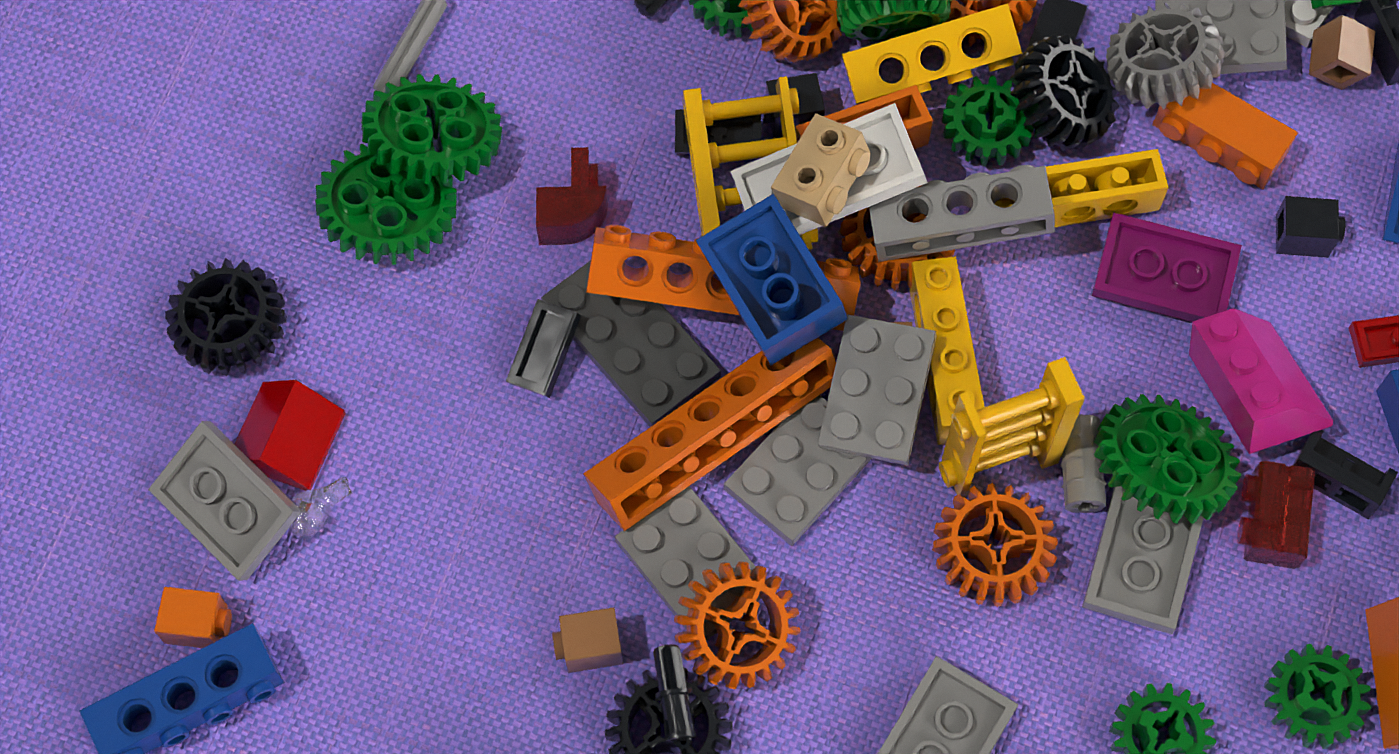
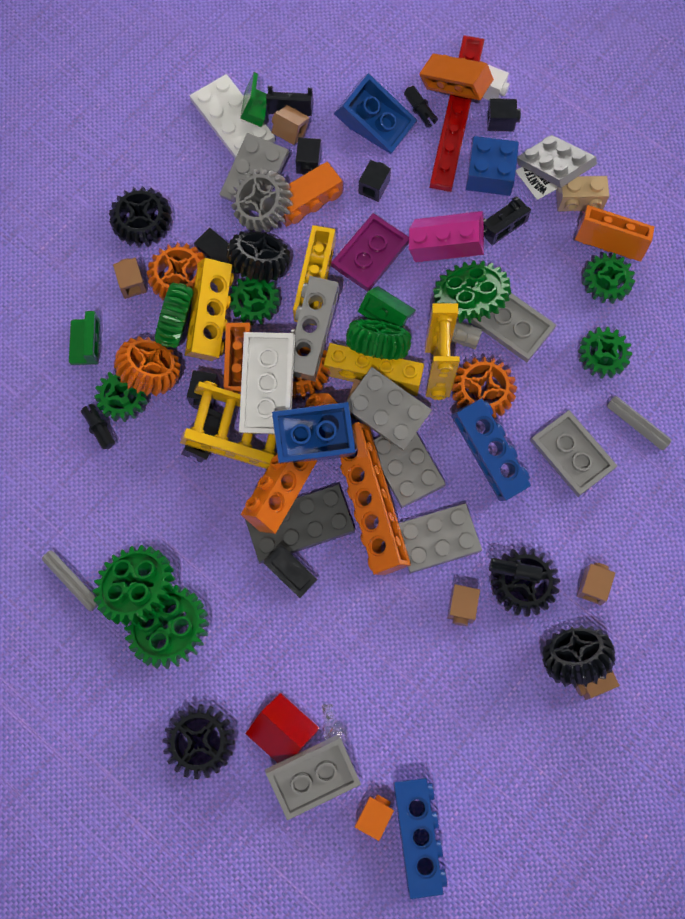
camera: 70 degrees left, 5 degrees up
(575, 211) = (216, 526): clear red brick -> none
(728, 644) = (485, 526): orange gear -> none
(821, 170) = (268, 382): tan brick -> none
(825, 635) = (478, 444): none -> blue brick
(997, 330) = (378, 339): none -> green gear
(1072, 327) = (385, 307): none -> green panel
(1277, 514) = (515, 256): clear red brick -> none
(1300, 102) = (307, 155): none -> black brick

